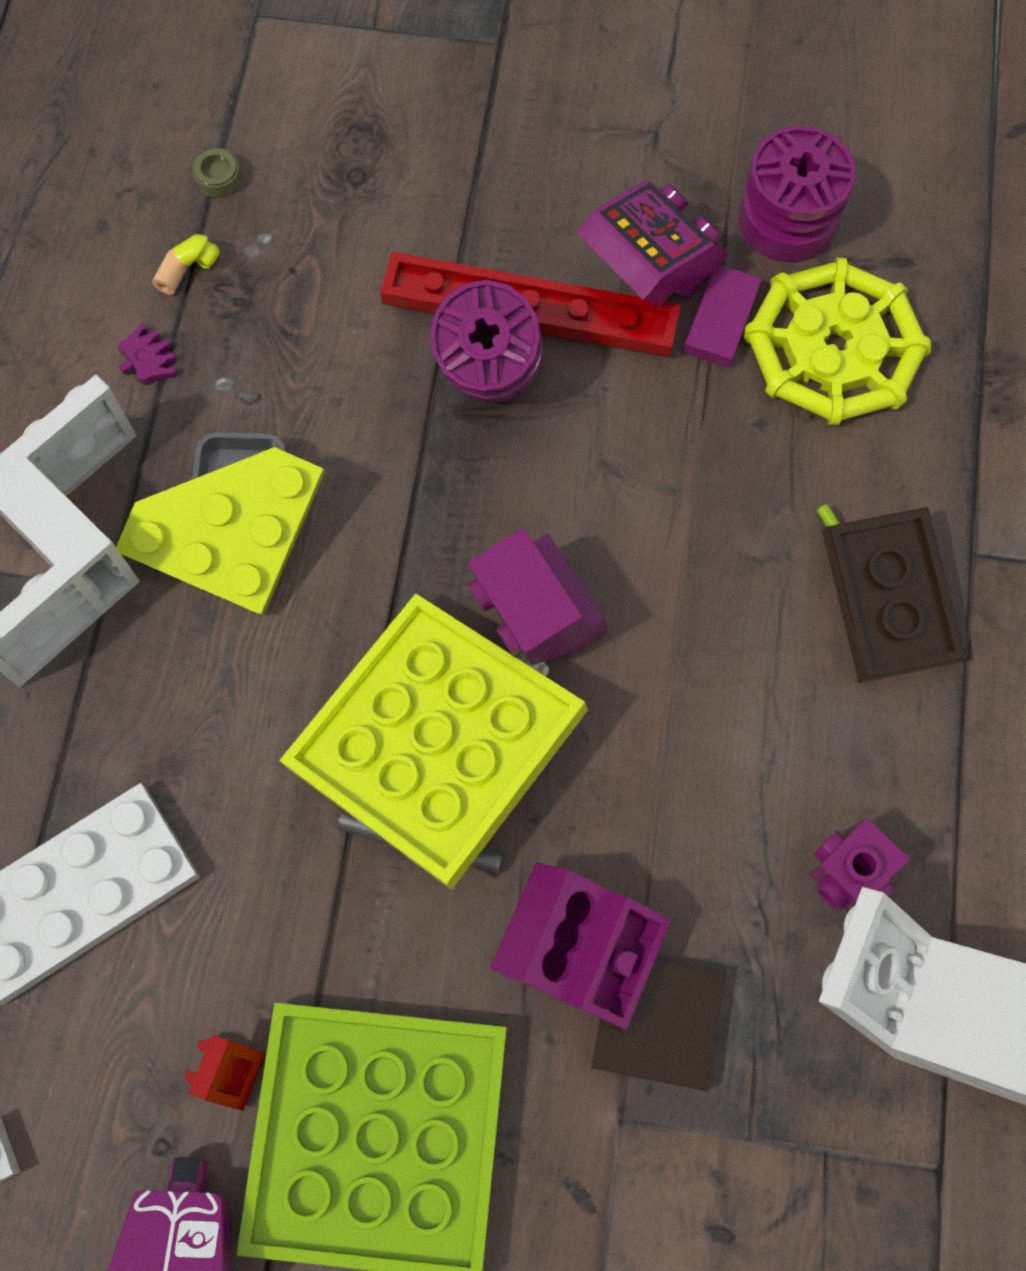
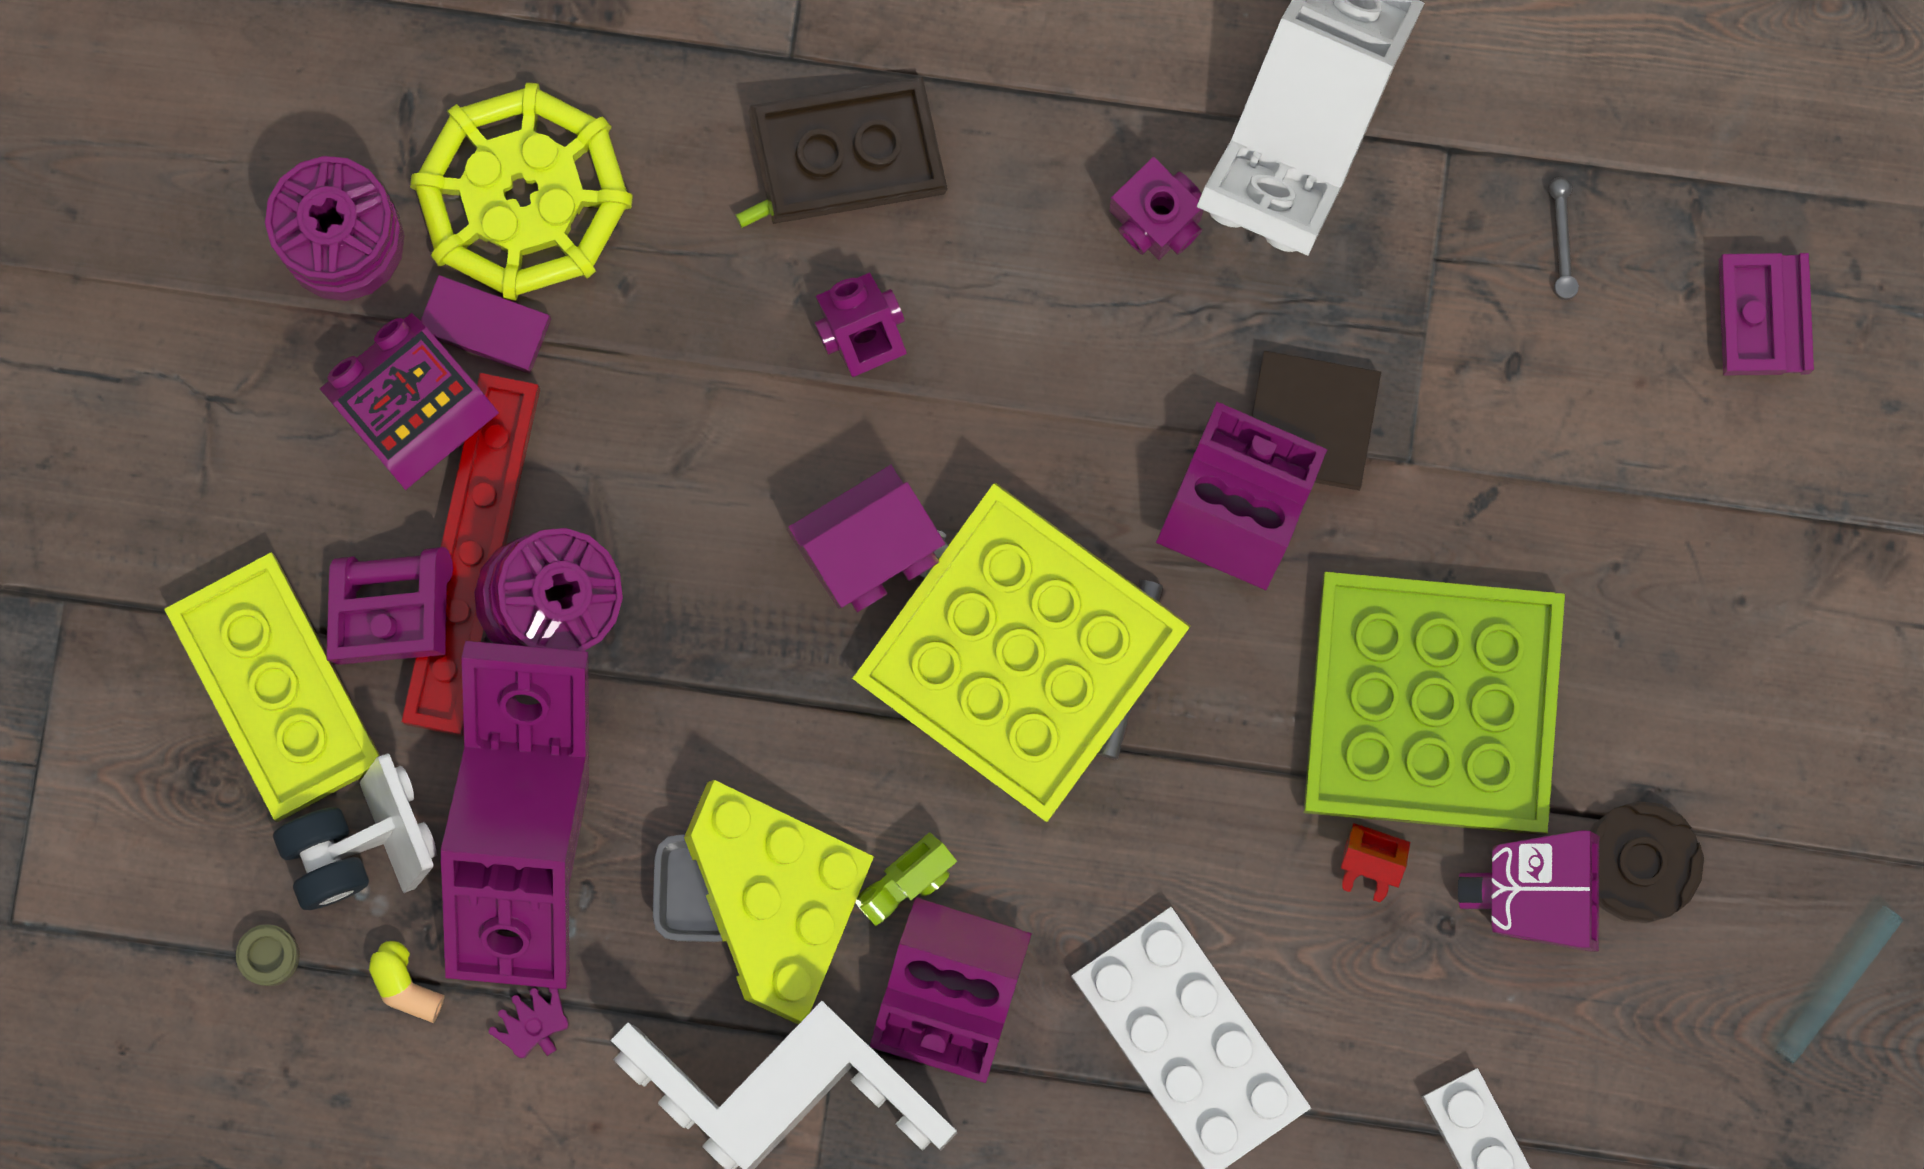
camera: 90 degrees left, 10 degrees up
(136, 675) = (950, 990): none -> magenta piece
(241, 645) = (914, 873): none -> lime plate
(307, 318) = (516, 815): none -> magenta bracket
(310, 227) = (319, 835): none -> plate
(424, 169) = (274, 686): none -> neon yellow plate
(469, 238) = (388, 624): none -> magenta plate
(734, 599) = (860, 324): none -> magenta brick

